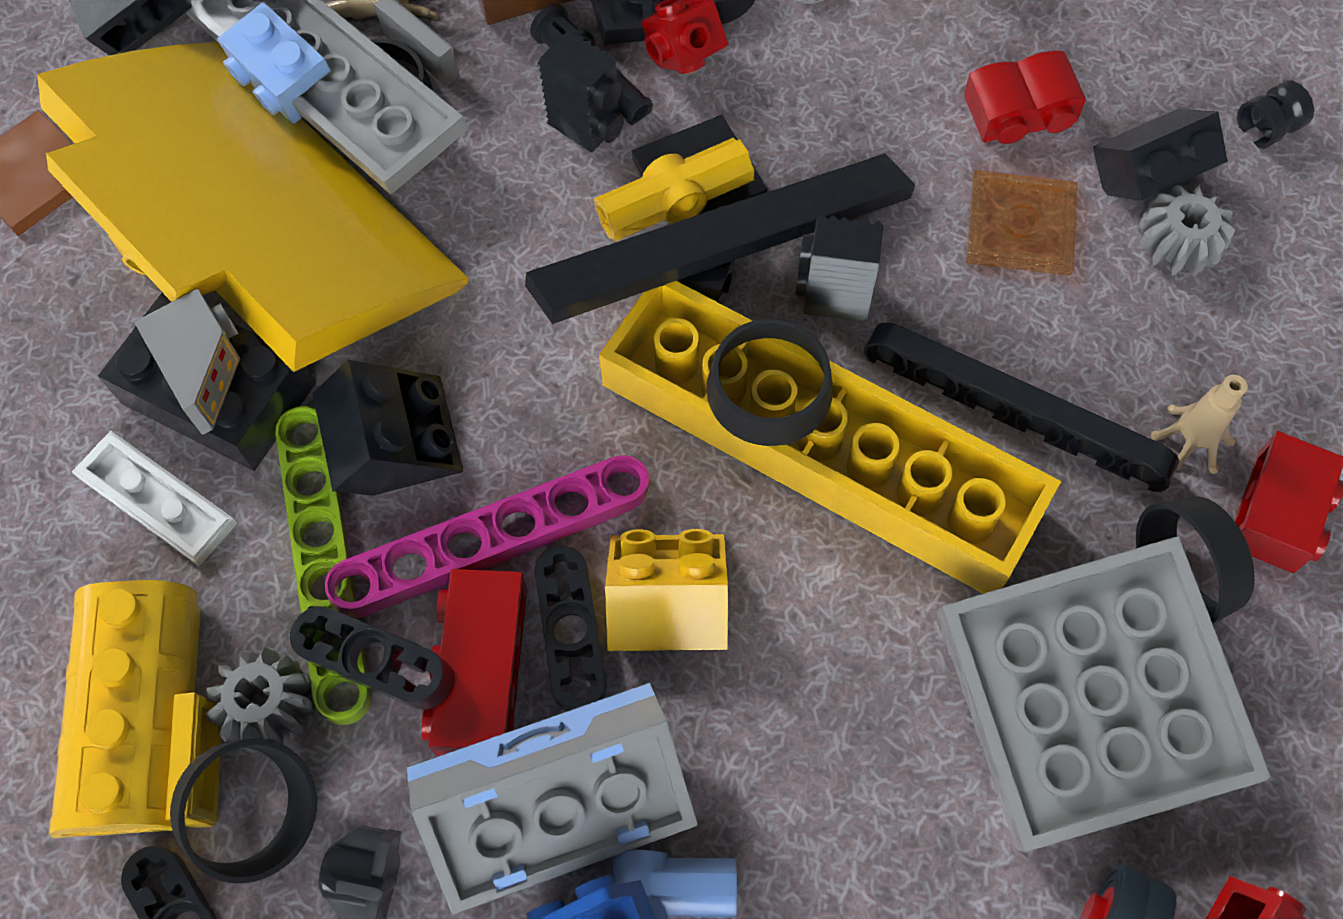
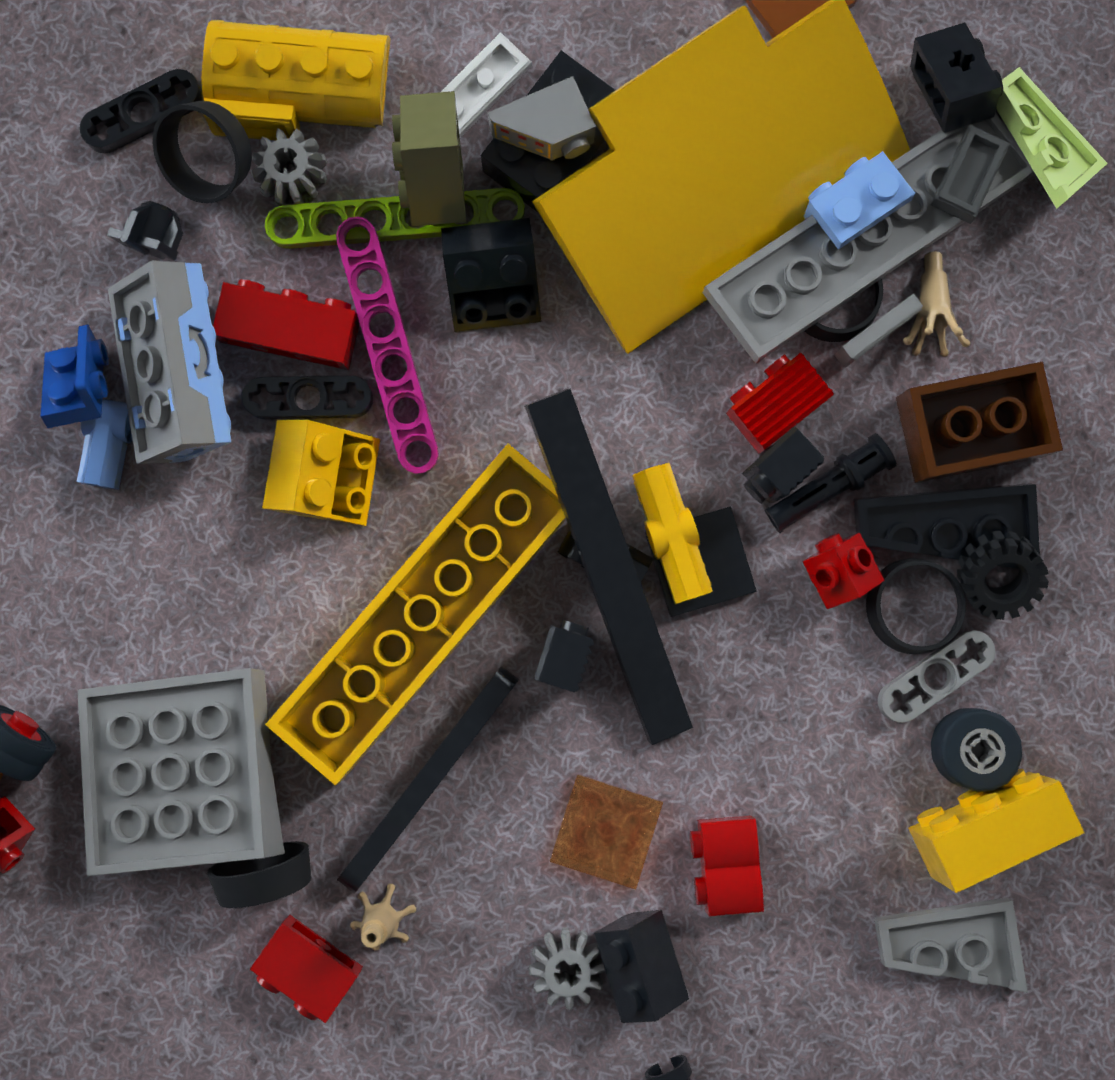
camera: 90 degrees right, 20 degrees up
(242, 494) = (429, 158): none -> olive brick
(385, 677) = (296, 225): black beam -> none
(509, 119) = (779, 402): none -> red brick
(762, 429) = (491, 599): black tyre -> none

